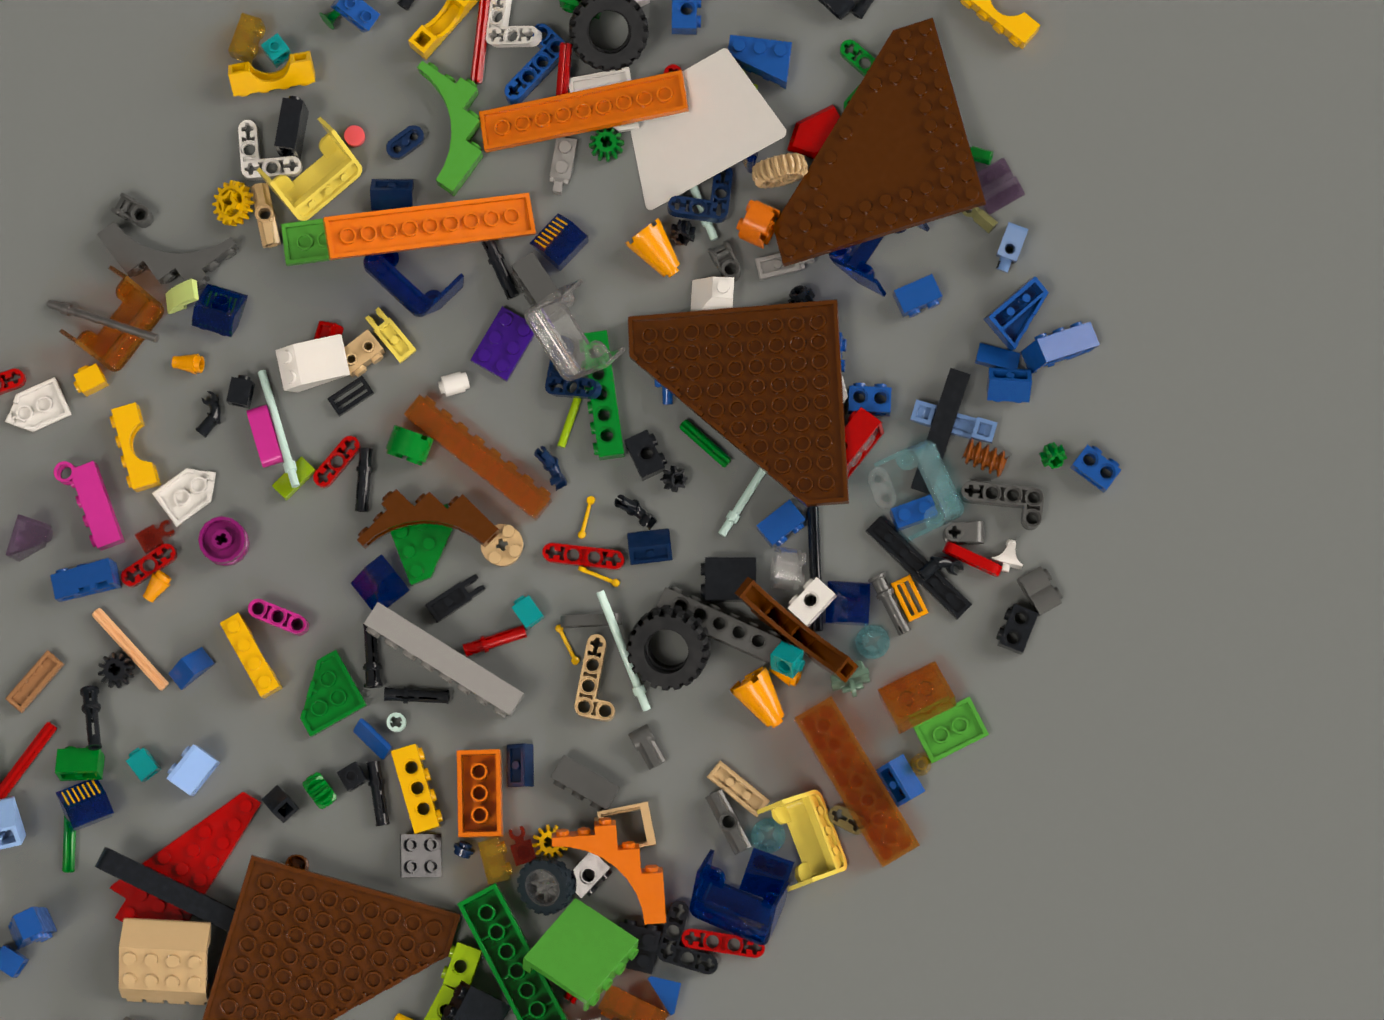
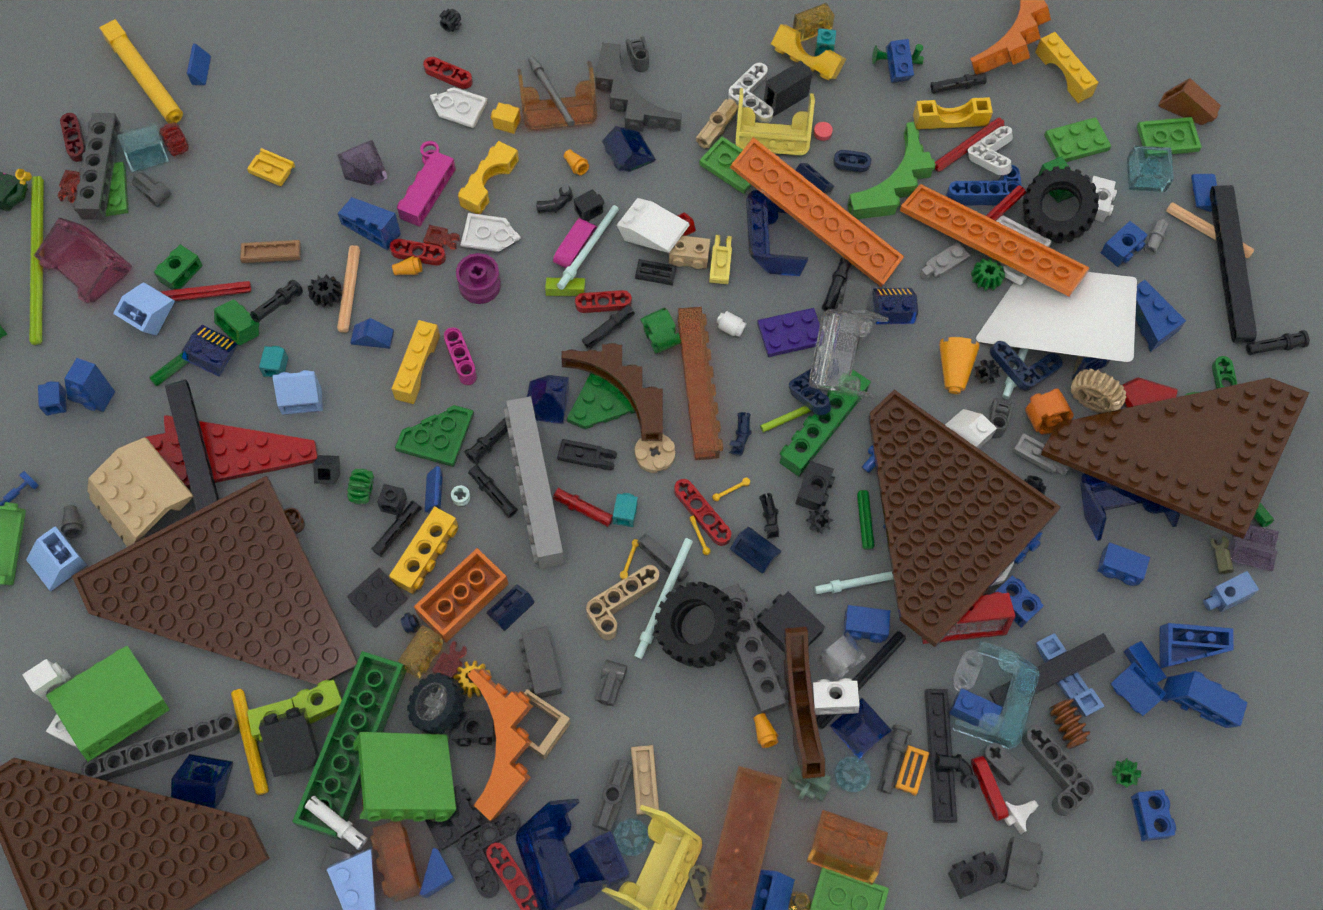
camera: 40 degrees right, 15 degrees down
(181, 295) = (615, 118): yellowish green slope -> none
(233, 203) = (704, 99): yellow gear -> none
(759, 697) = (728, 728): light orange cone -> none
(787, 659) = (775, 719): teal brick -> none

